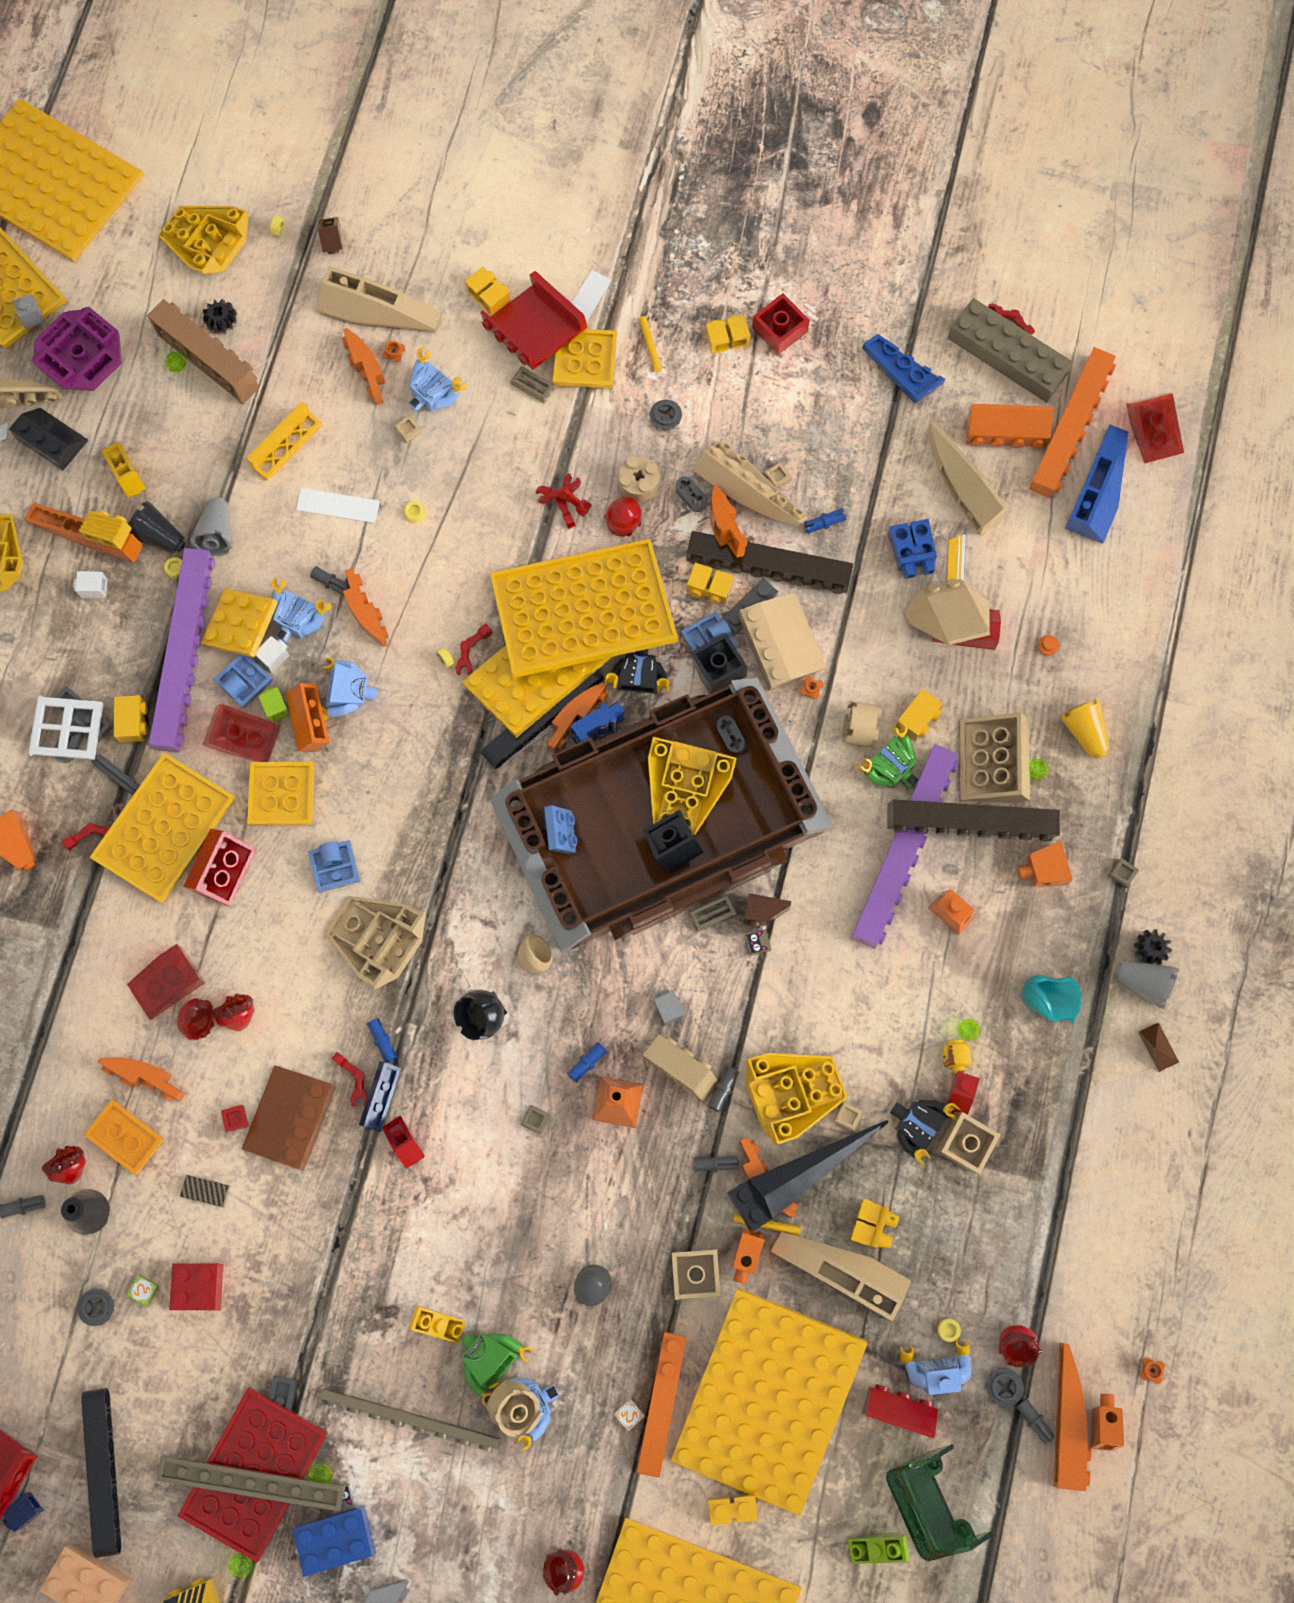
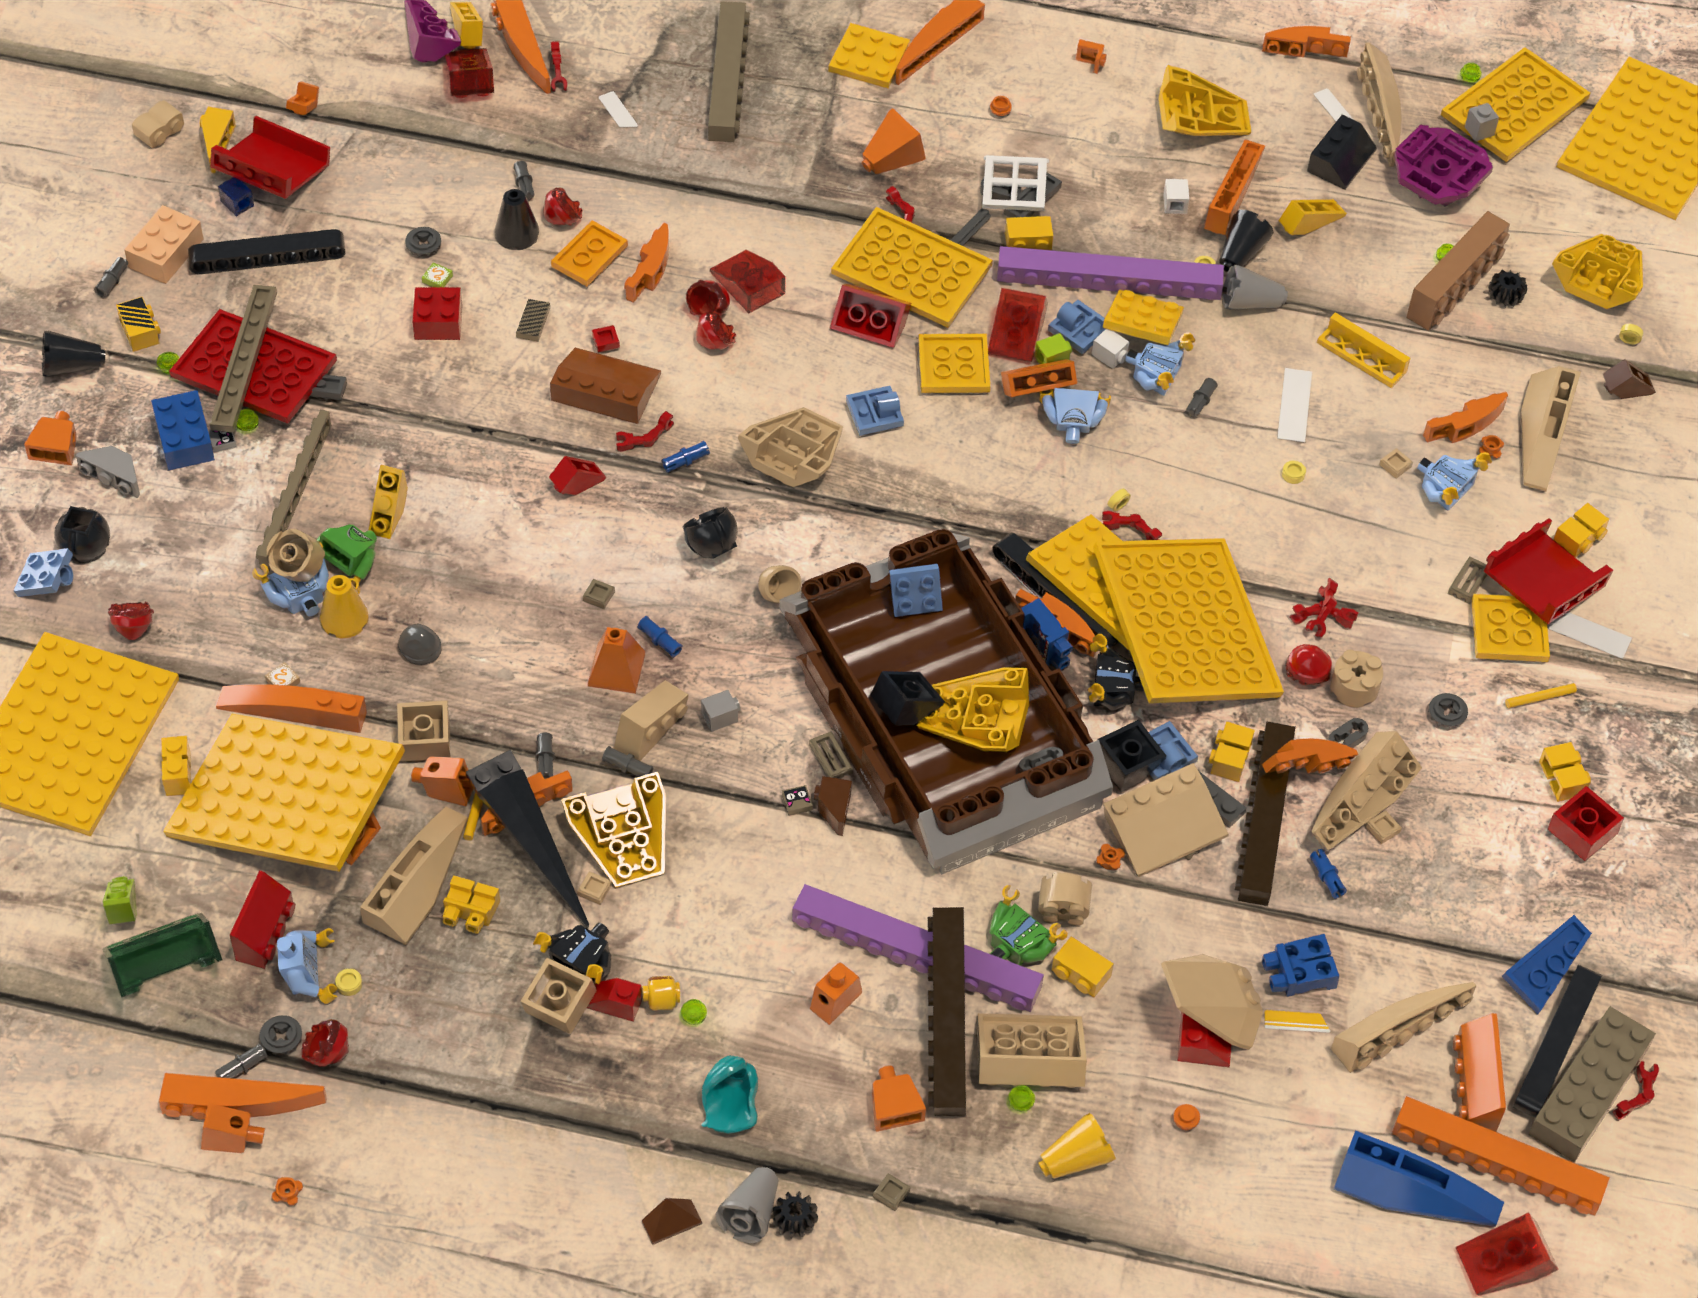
camera: 85 degrees right, 20 degrees down
(105, 529) = (1232, 189): yellow brick -> none
(363, 611) = (1163, 427): orange slope -> none
(380, 1096) = (625, 455): plate -> none
(568, 1360) = (342, 608): none -> yellow cone
(971, 369) = (1557, 1041): none -> black beam

